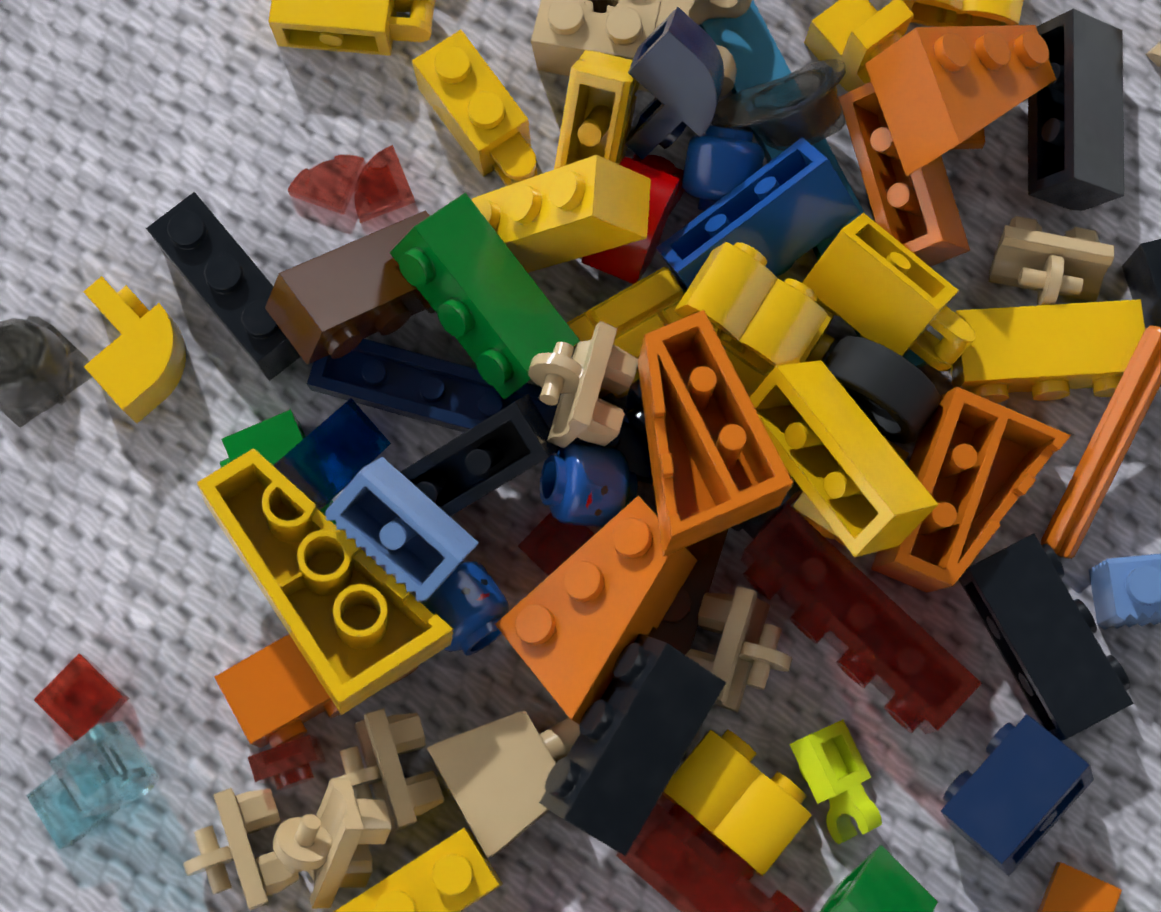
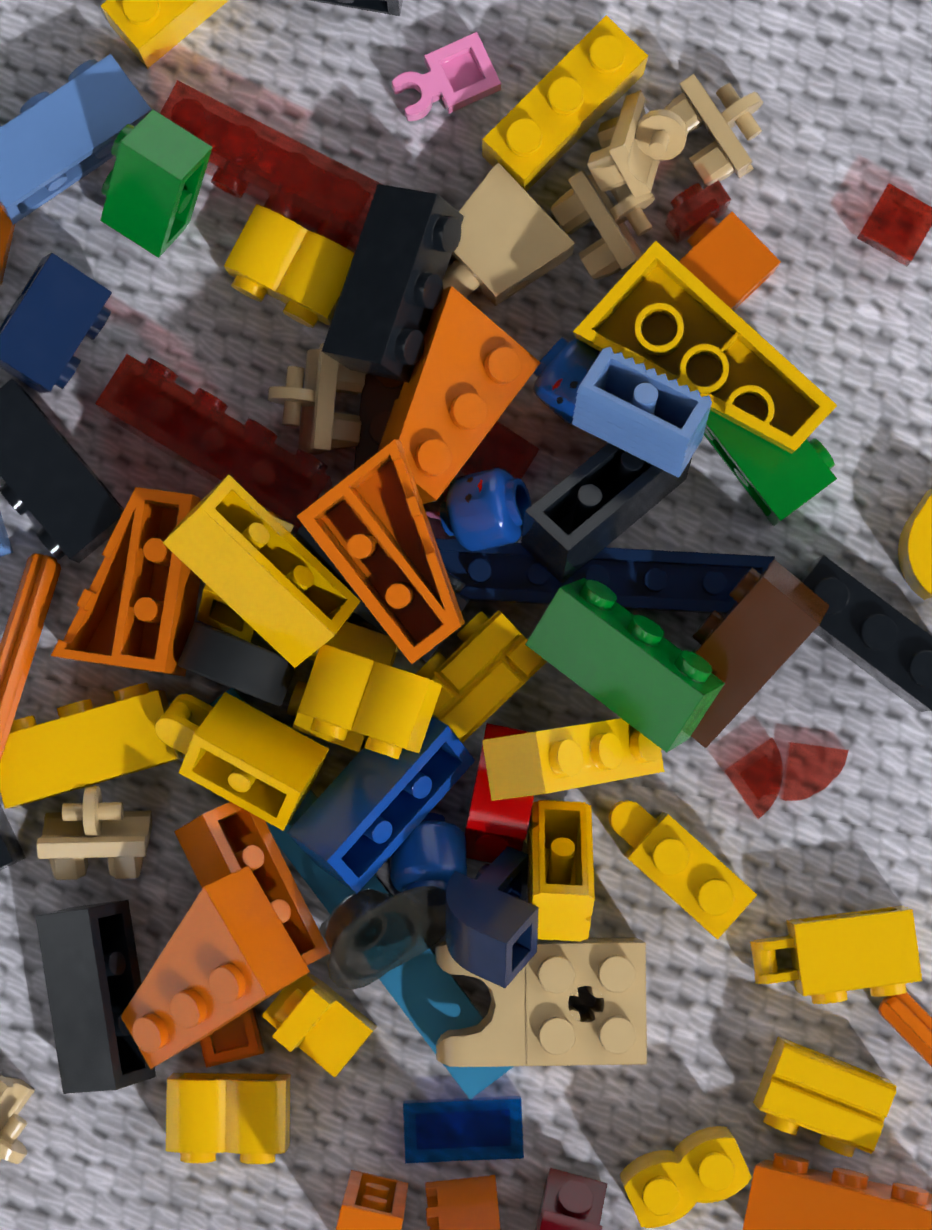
camera: 165 degrees right, 10 degrees up
(92, 782) = (862, 148): clear light blue brick -> none
(333, 454) = (730, 487): clear blue tile -> none
(579, 380) = (517, 590): tan hips -> none
(835, 772) = (211, 310): neon yellow plate -> none

